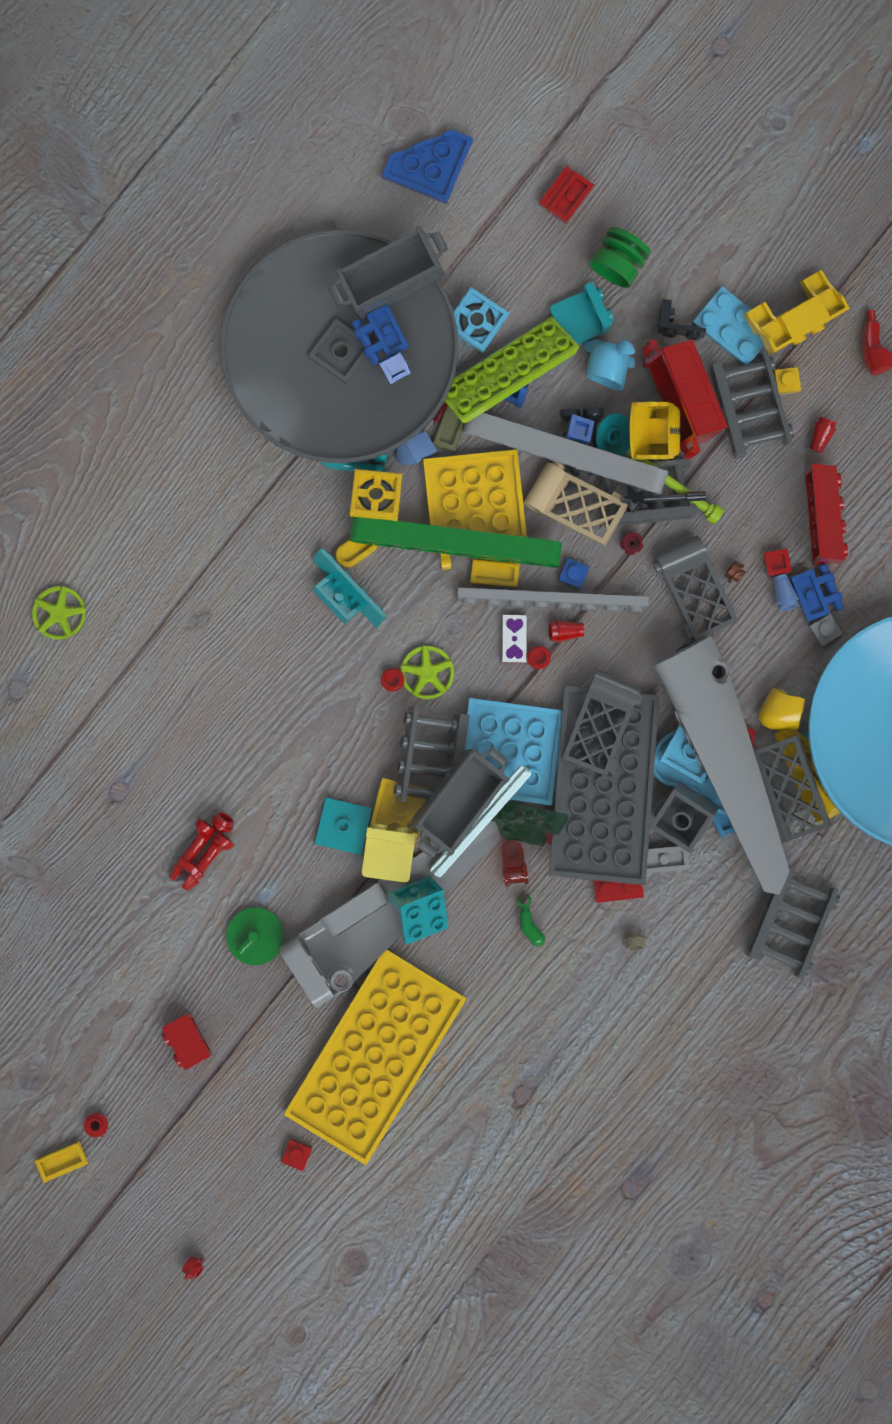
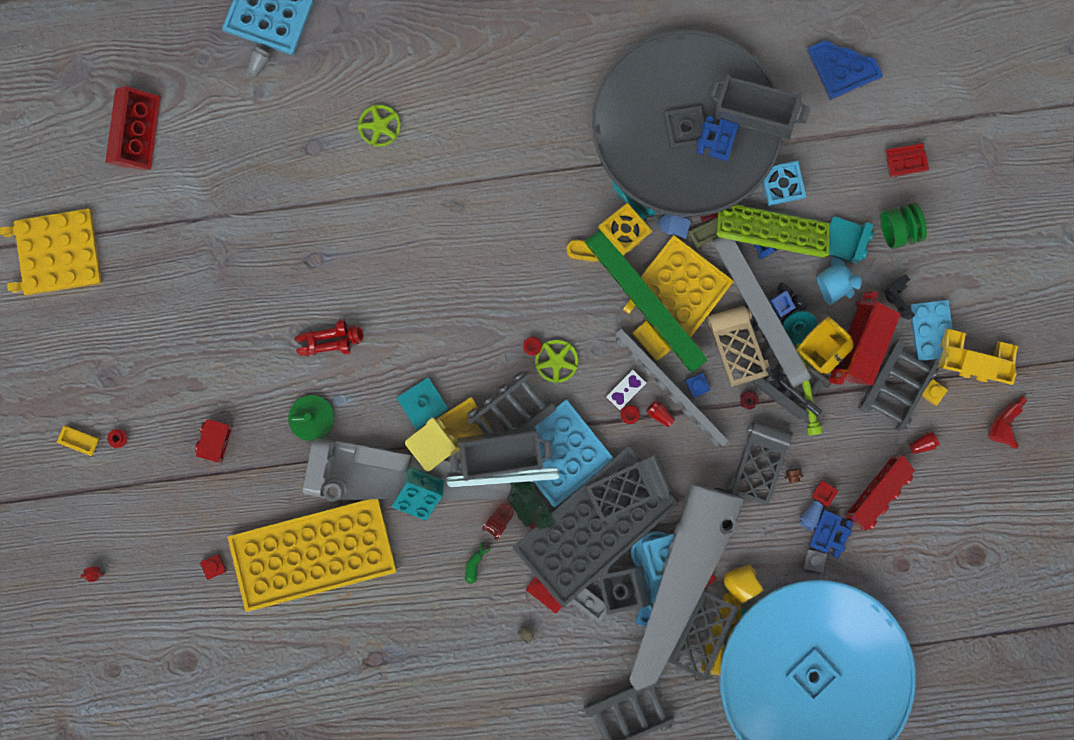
camera: 50 degrees right, 0 degrees up
(342, 592) = (551, 269): teal bracket -> none
(395, 367) = (708, 164): plate -> none

